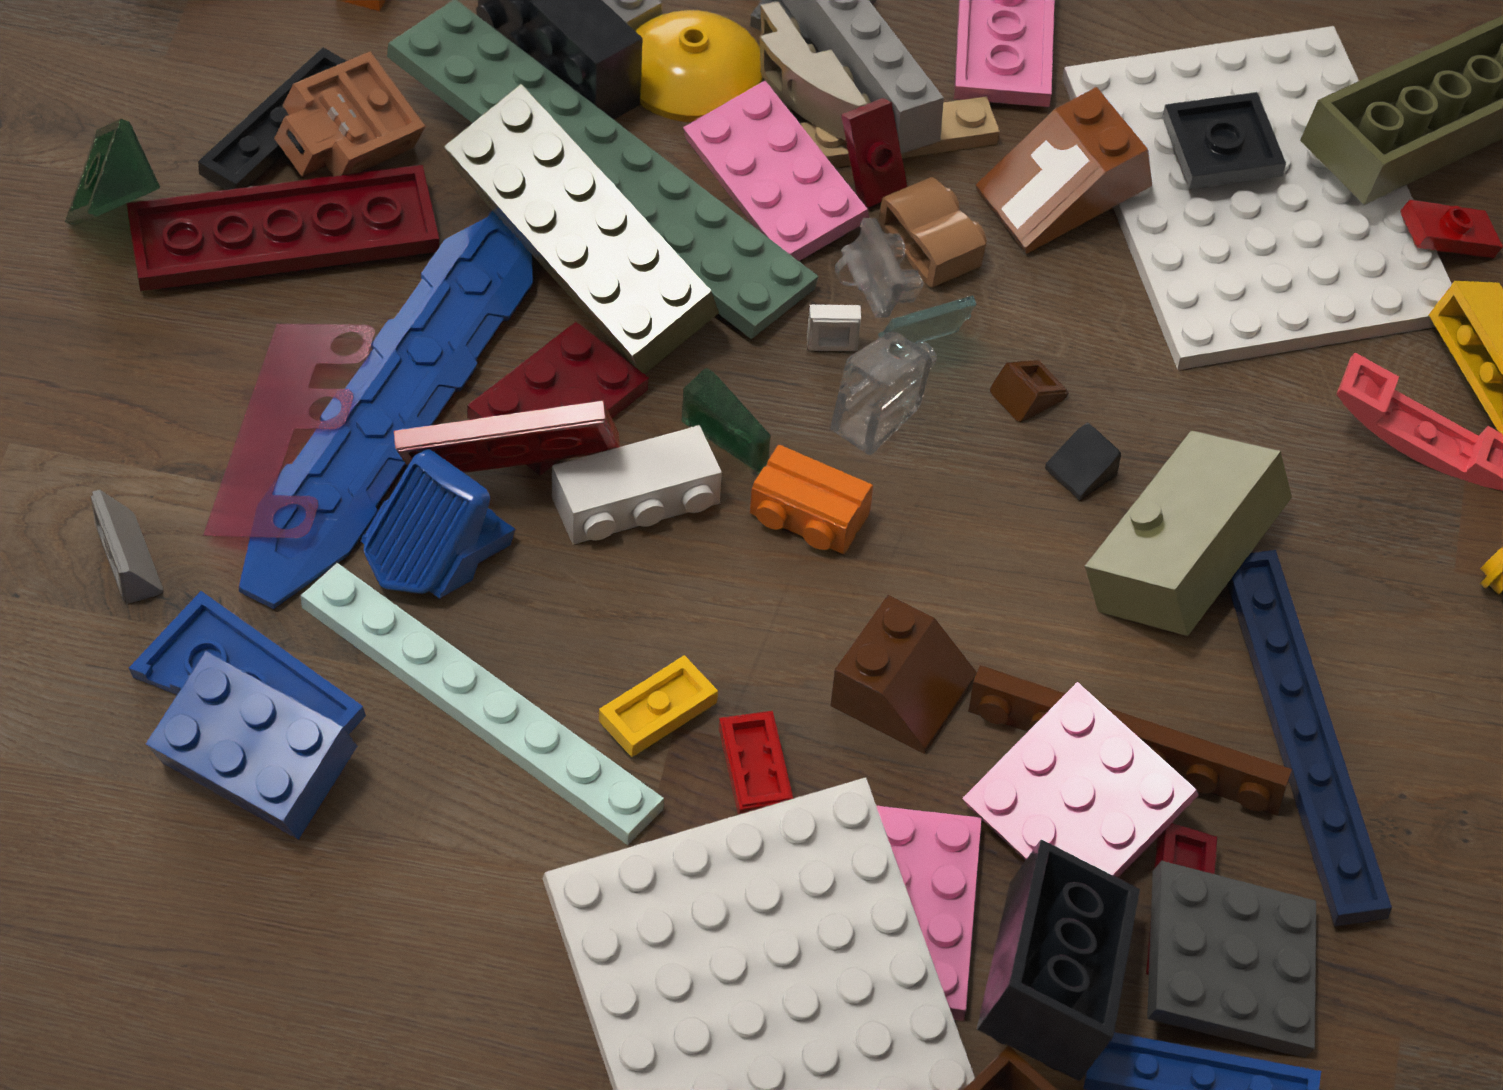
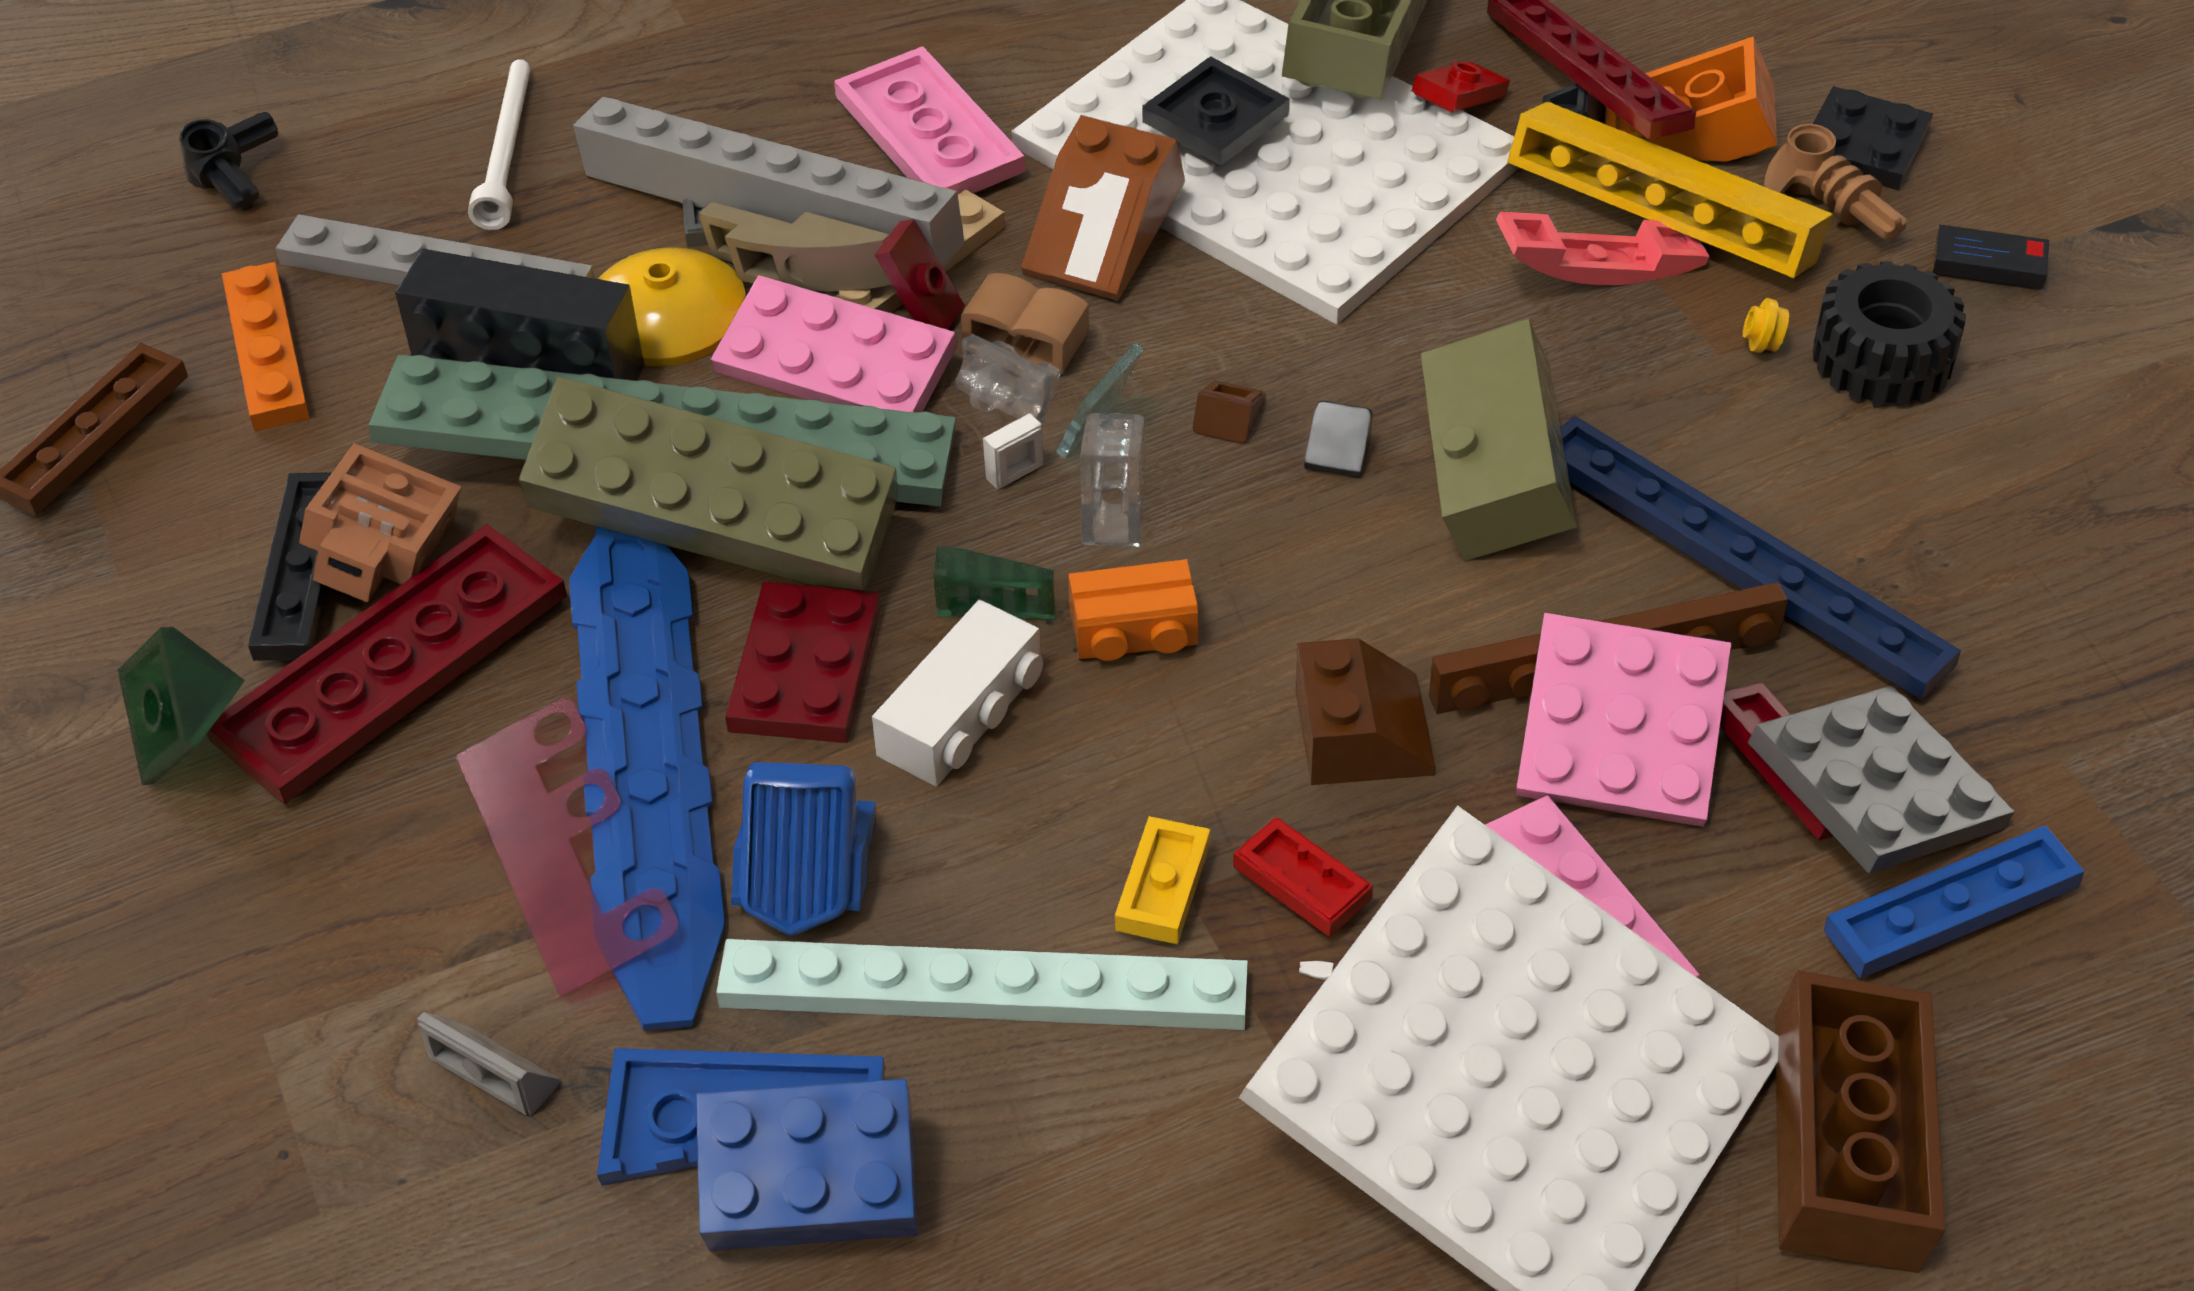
camera: 30 degrees left, 5 degrees down
(515, 437) = (818, 709): red tile -> none
(1059, 960) = (1767, 866): black brick -> none

